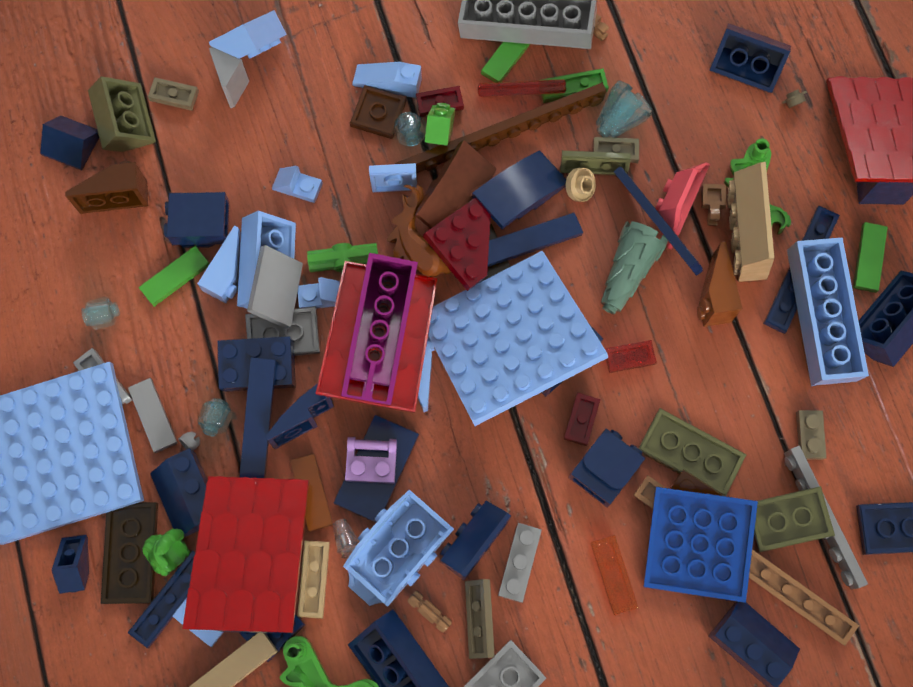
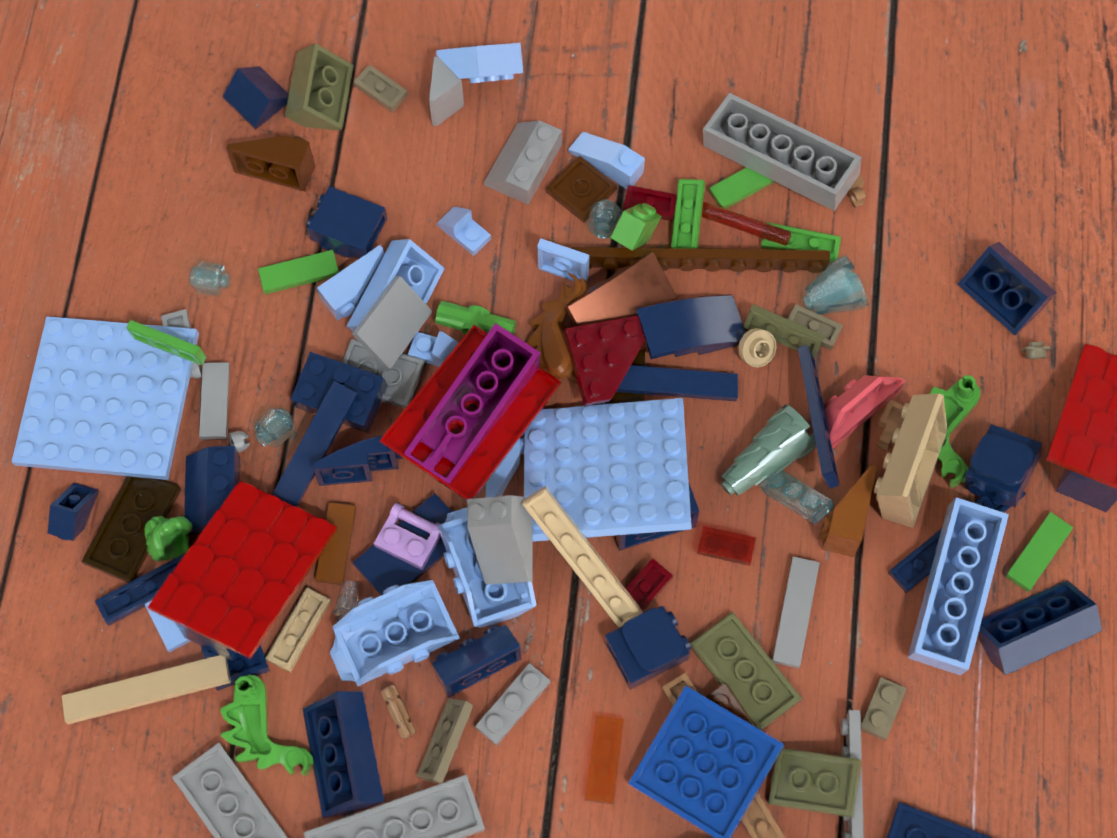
camera: 25 degrees right, 5 degrees down
(82, 385) = (166, 342): none -> bright green tile
(321, 106) = (525, 160): none -> light grey slope
(447, 455) = (485, 602): none -> light blue slope
(455, 431) = (501, 538): none -> light grey slope
(475, 98) = (688, 214): none -> bright green tile
(526, 418) = (581, 556): none -> tan tile
(670, 292) = (797, 496): none -> clear light blue plate
(708, 387) = (795, 612): none -> light grey tile
(815, 200) = (1002, 465): none -> dark blue brick

